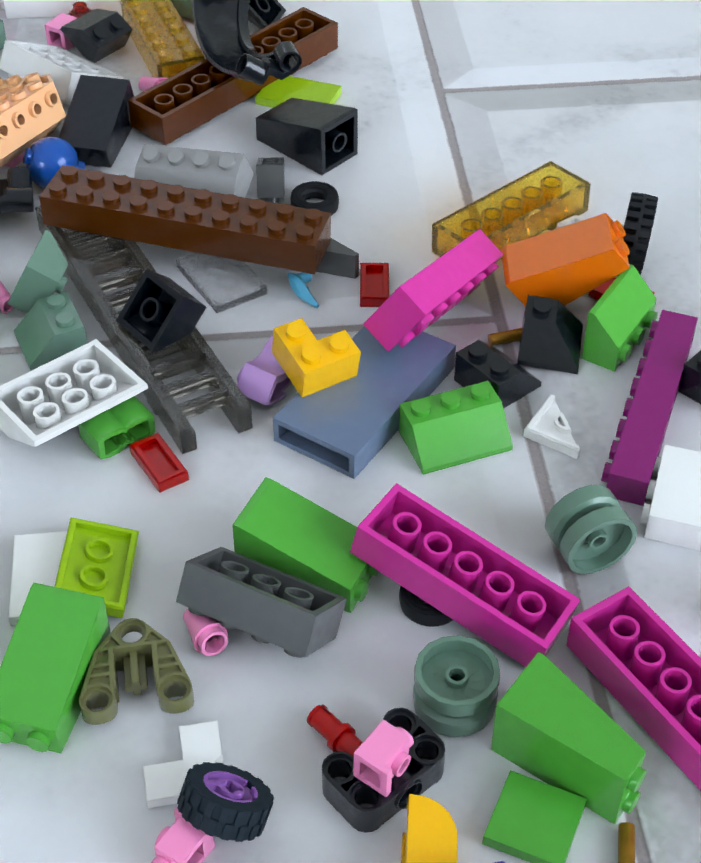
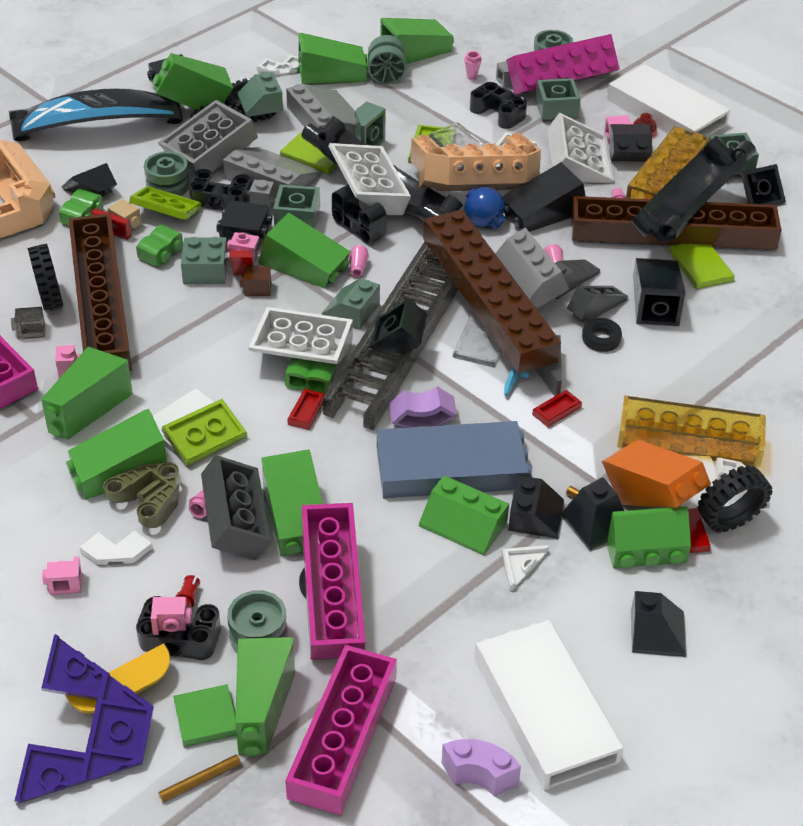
camera: 50 degrees right, 0 degrees up
(41, 275) = (378, 263): sand green slope -> none
(225, 801) = (96, 572): black wheel -> none
(314, 362) = (429, 416): yellow brick -> none
(434, 291) = (551, 429): dark pink brick -> none
(590, 529) = (432, 620): sand green wheel -> none
(650, 408) = (595, 597): magenta brick -> none

